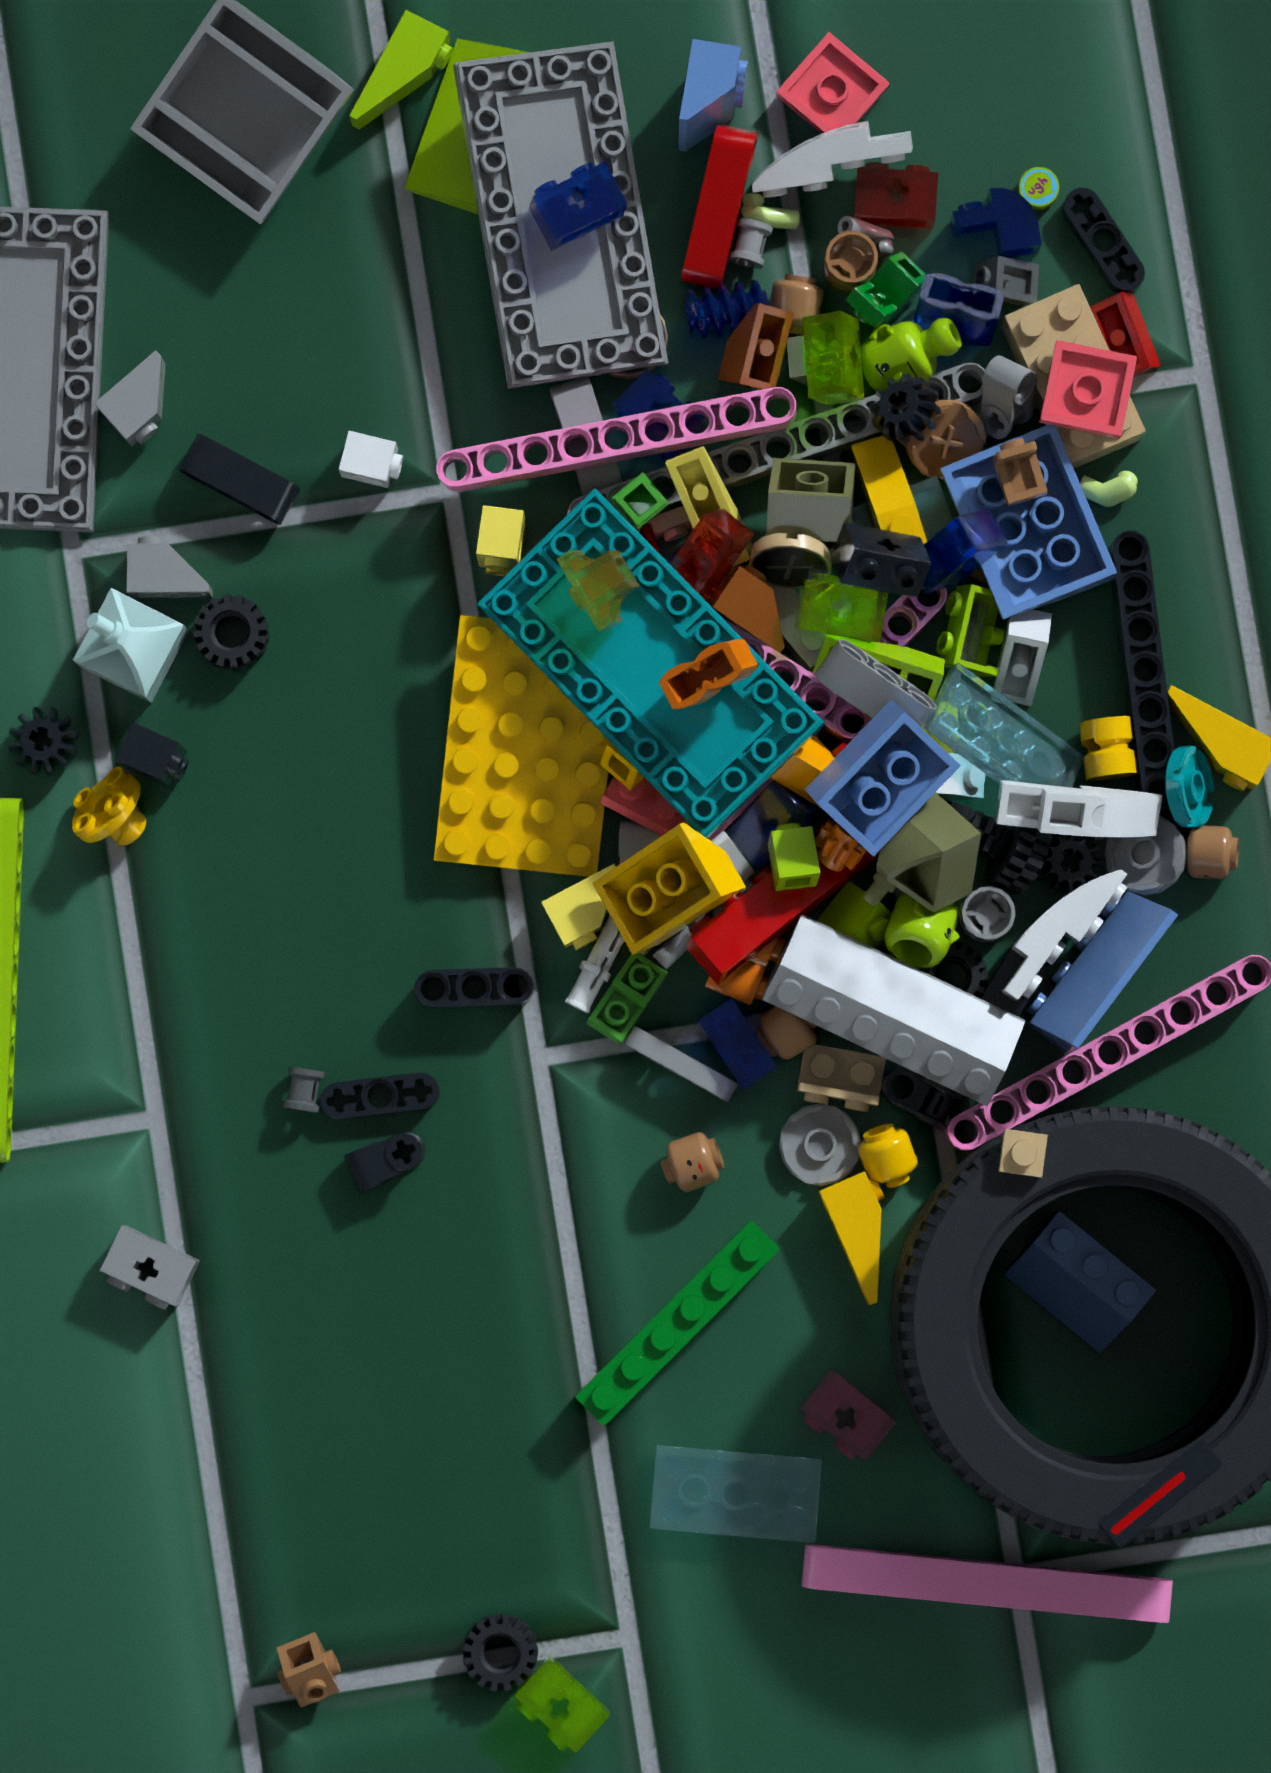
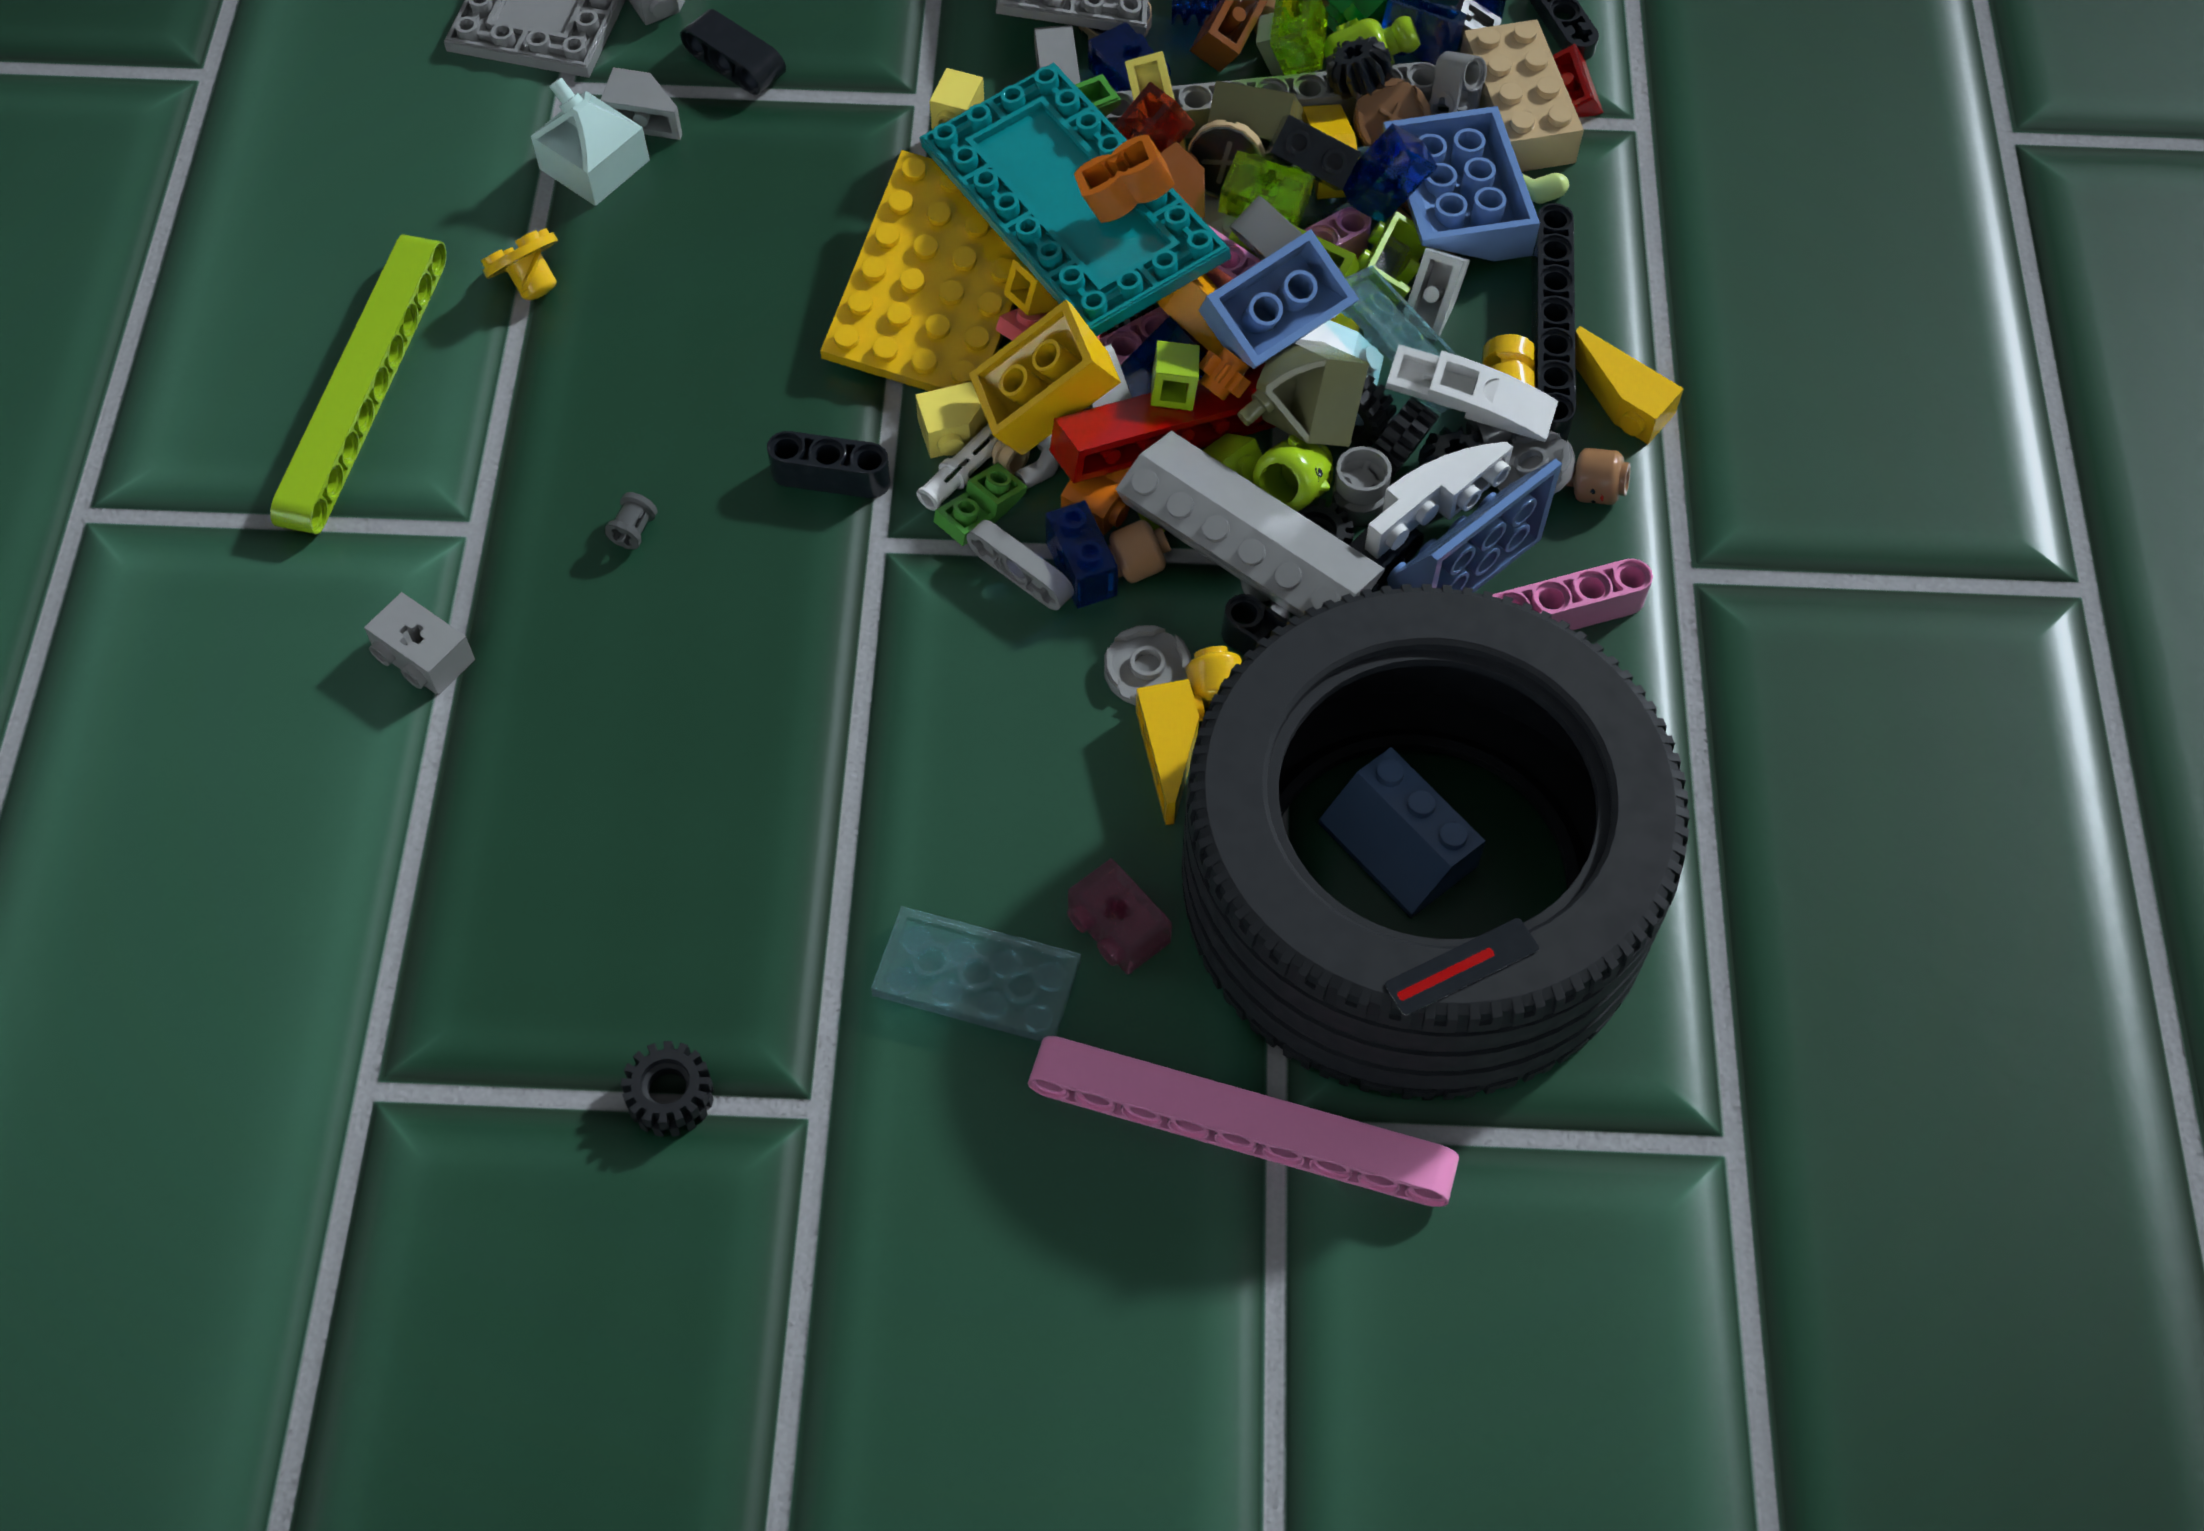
camera: 10 degrees right, 25 degrees down
(31, 750) = (482, 206): black gear -> none
(153, 756) = (578, 220): black brick -> none
(225, 608) = (683, 142): black tyre -> none
(308, 1670) = (444, 1058): medium nougat brick -> none
(350, 1109) = (695, 530): black beam -> none
(370, 459) = (855, 55): white brick -> none
(378, 1161) = (690, 593): black piece -> none
(584, 1709) = (712, 1130): clear neon green brick -> none
(597, 432) = (1087, 51): bright pink beam -> none
(598, 584) = (1038, 115): clear yellow brick -> none
(677, 1322) = (953, 792): green brick -> none
(692, 1162) = (1009, 648): medium nougat head -> none
(842, 1076) = (1181, 607): tan bracket -> none
(1019, 471) = (1458, 121): medium nougat bracket -> none
(1022, 1153) = (1361, 602): tan plate -> none
(1088, 389) = (1533, 78): coral plate -> none
(1187, 786) = (1586, 410): teal tile -> none

